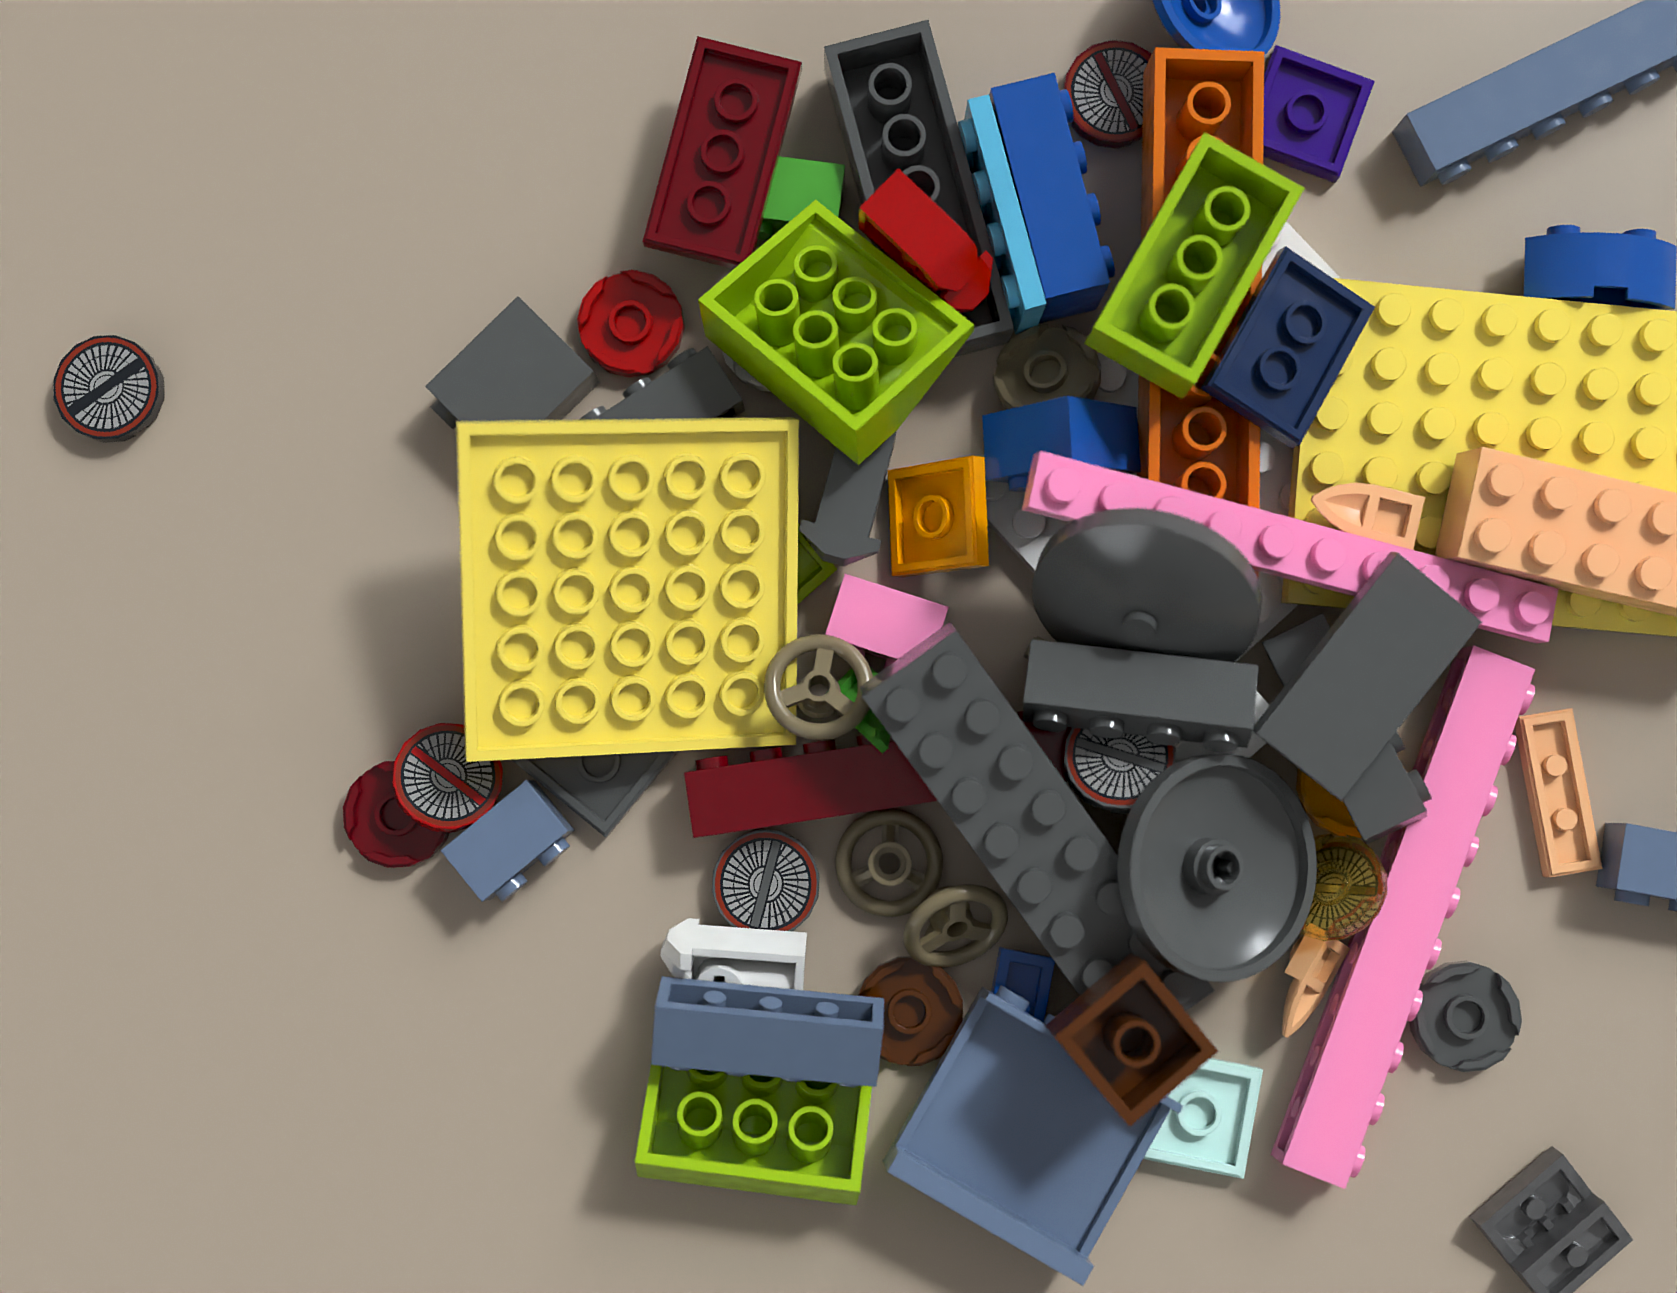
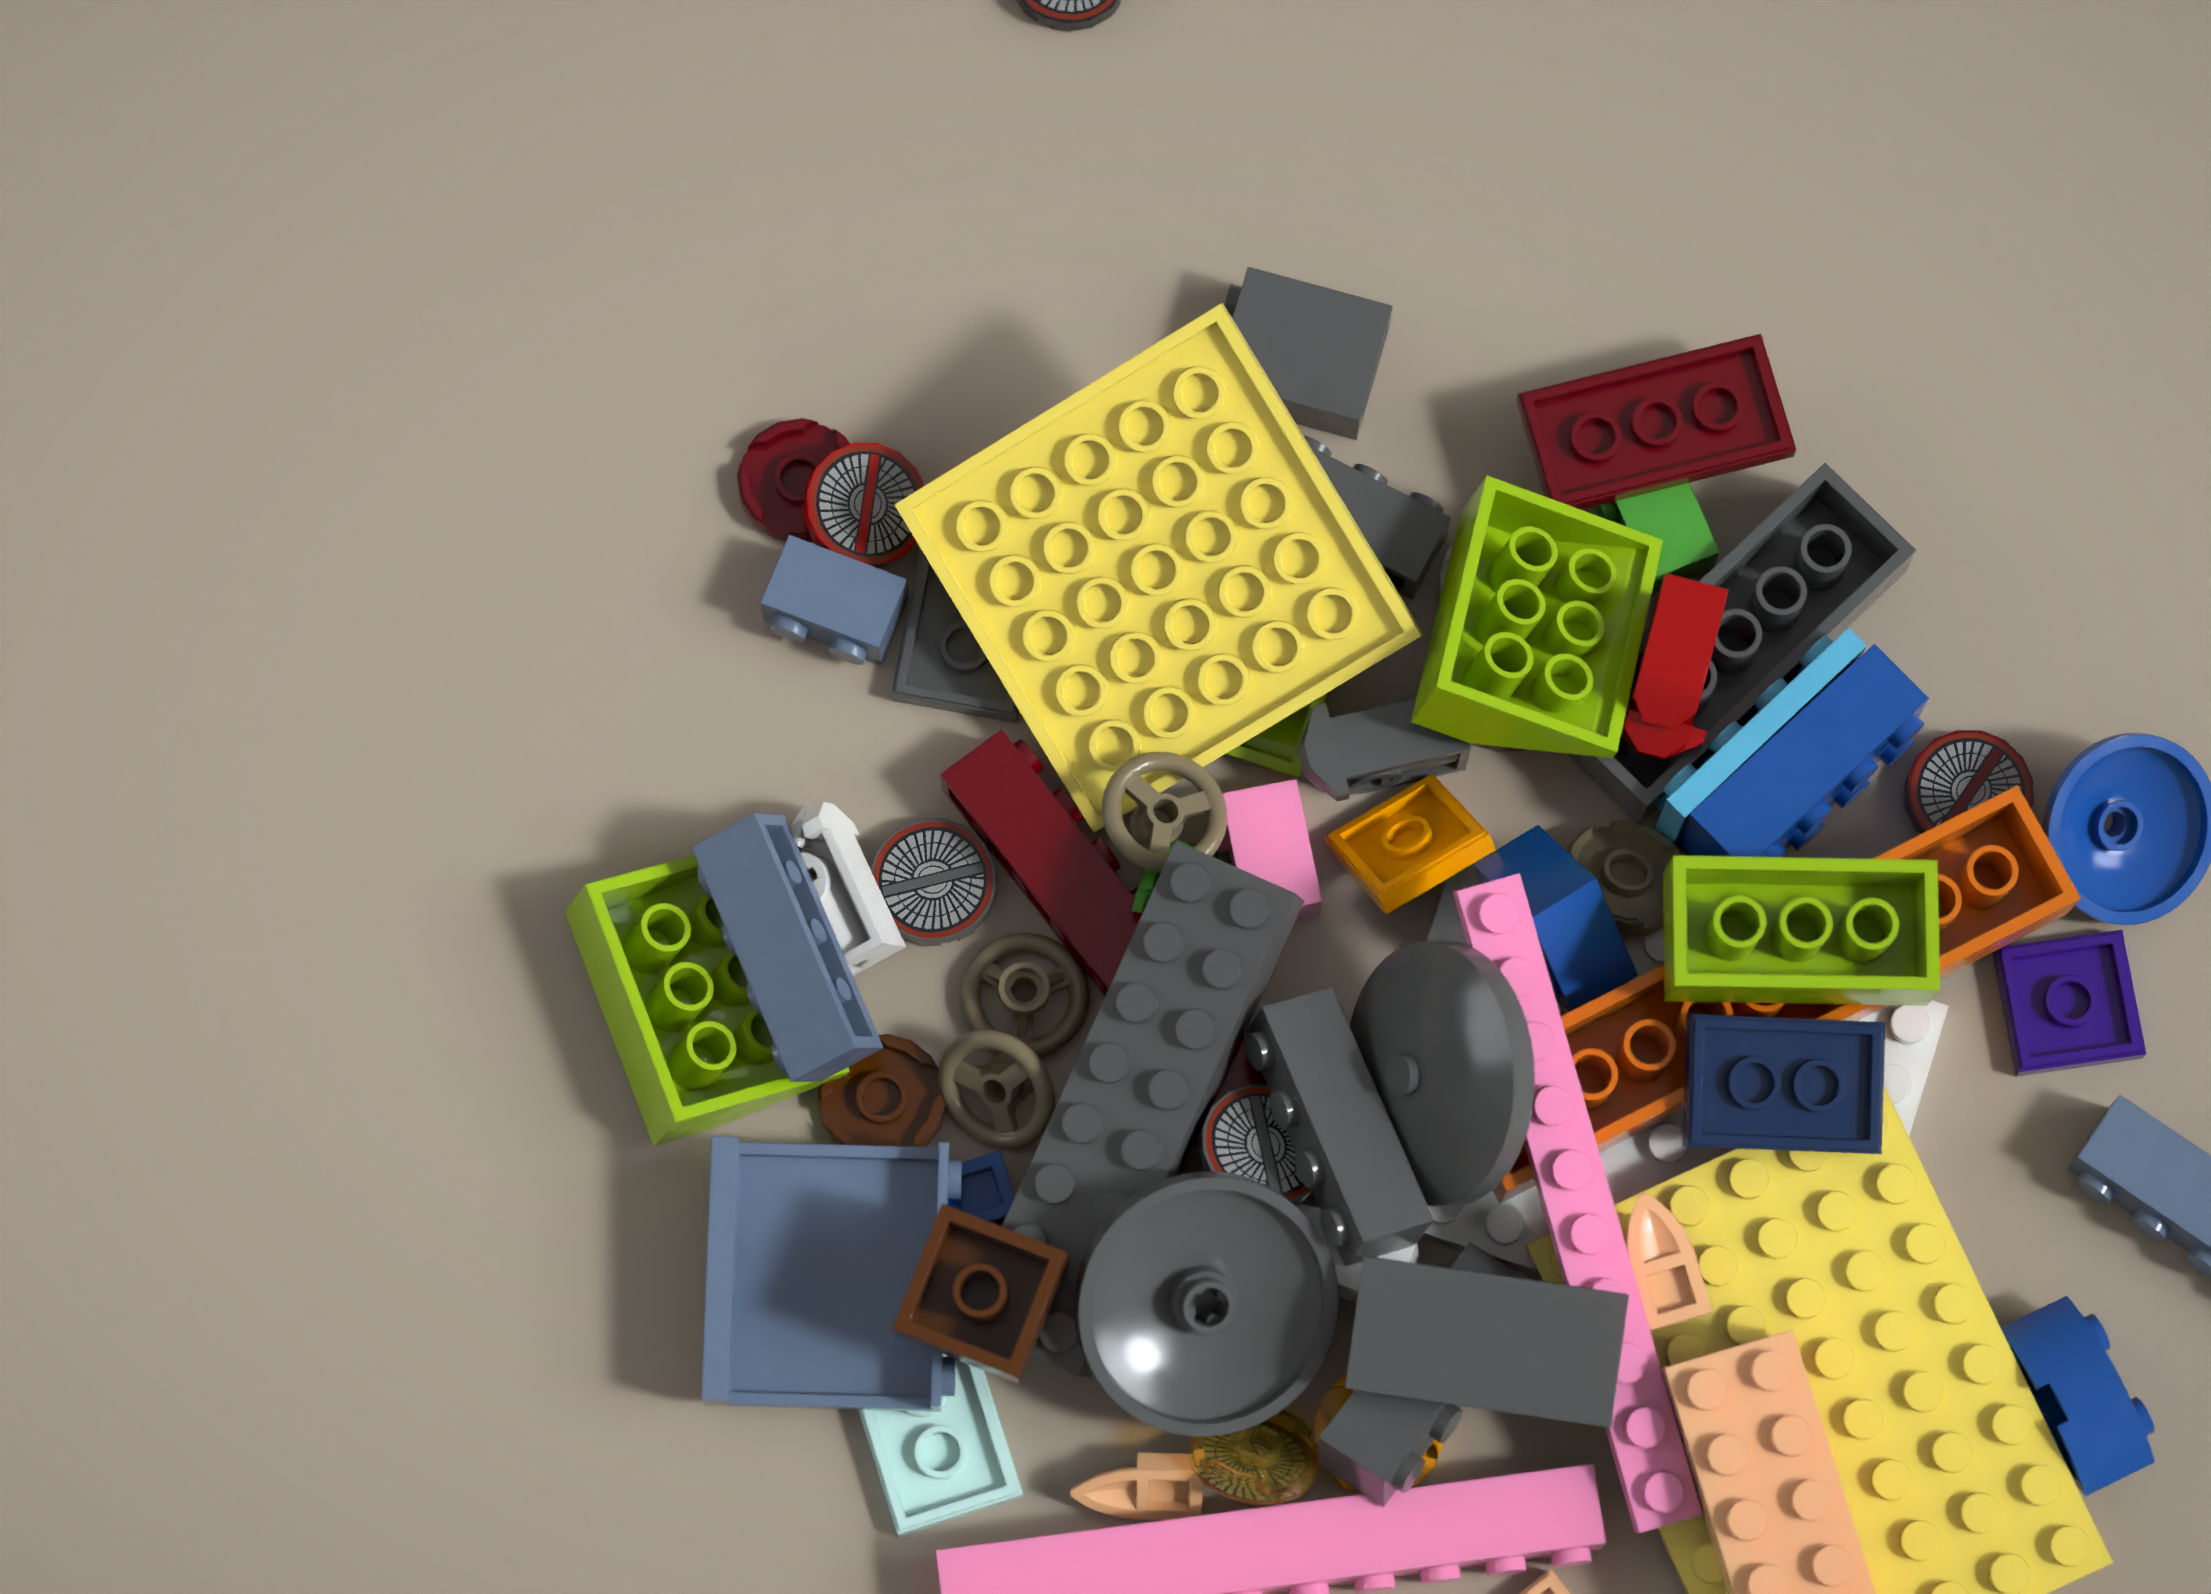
camera: 60 degrees right, 10 degrees down
(631, 323) = (1434, 436): red tile -> none

